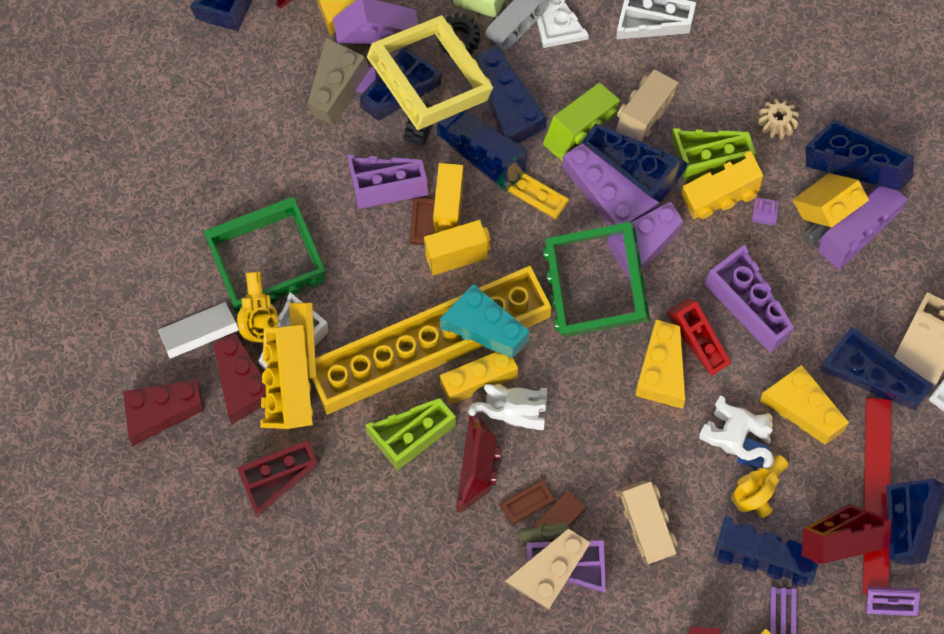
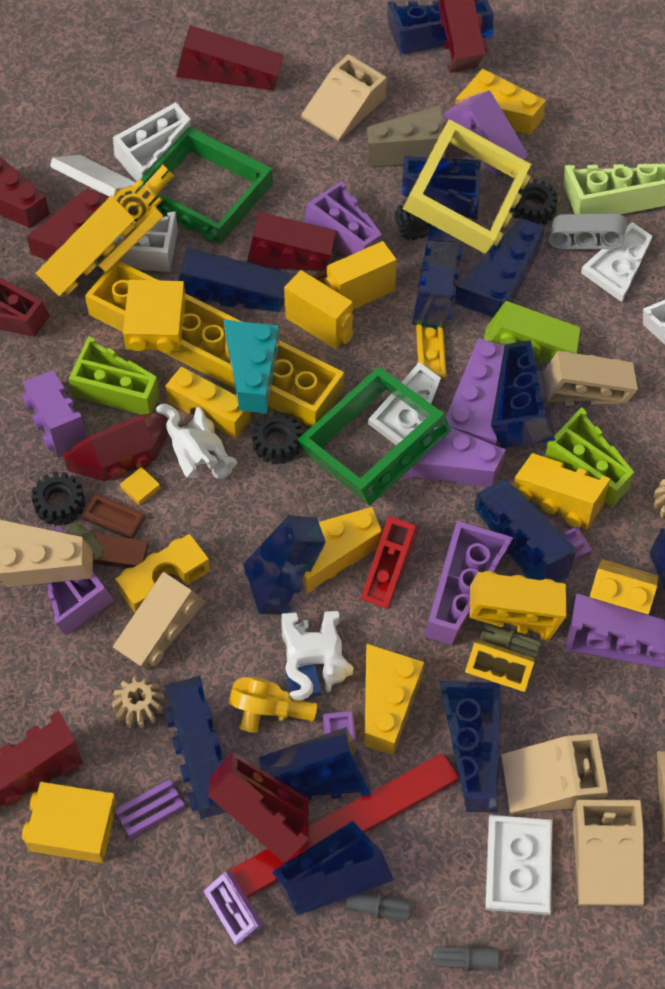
camera: 55 degrees right, 10 degrees down
(152, 161) = (227, 61): none -> dark red wedge
(198, 271) = (149, 139): none -> white wedge
(258, 100) = (345, 97): none -> tan slope
(377, 230) = (290, 244): none -> dark red wedge
(379, 294) = (232, 281): none -> clear blue wedge
(389, 366) = (154, 315): none -> yellow brick
(409, 491) = (53, 412): none -> medium lavender wedge
(492, 518) = (58, 484): none -> black tyre
(514, 468) = (140, 486): none -> yellow tile
(549, 360) = (276, 424): none -> black tyre
(584, 256) = (397, 419): none -> white wing
(604, 517) = (180, 558): none -> yellow arch
(665, 409) = (282, 561): none -> clear blue wedge
(708, 577) = (143, 709): none -> tan gear
(761, 232) = (536, 543): none -> clear blue wedge
(801, 273) = (518, 602): none -> yellow wedge
(802, 452) = (339, 720): none -> medium lavender tile
(813, 299) = (510, 640): none -> olive axle
(831, 483) = (320, 766): none -> clear blue wedge
(837, 317) = (500, 665): none -> yellow brick

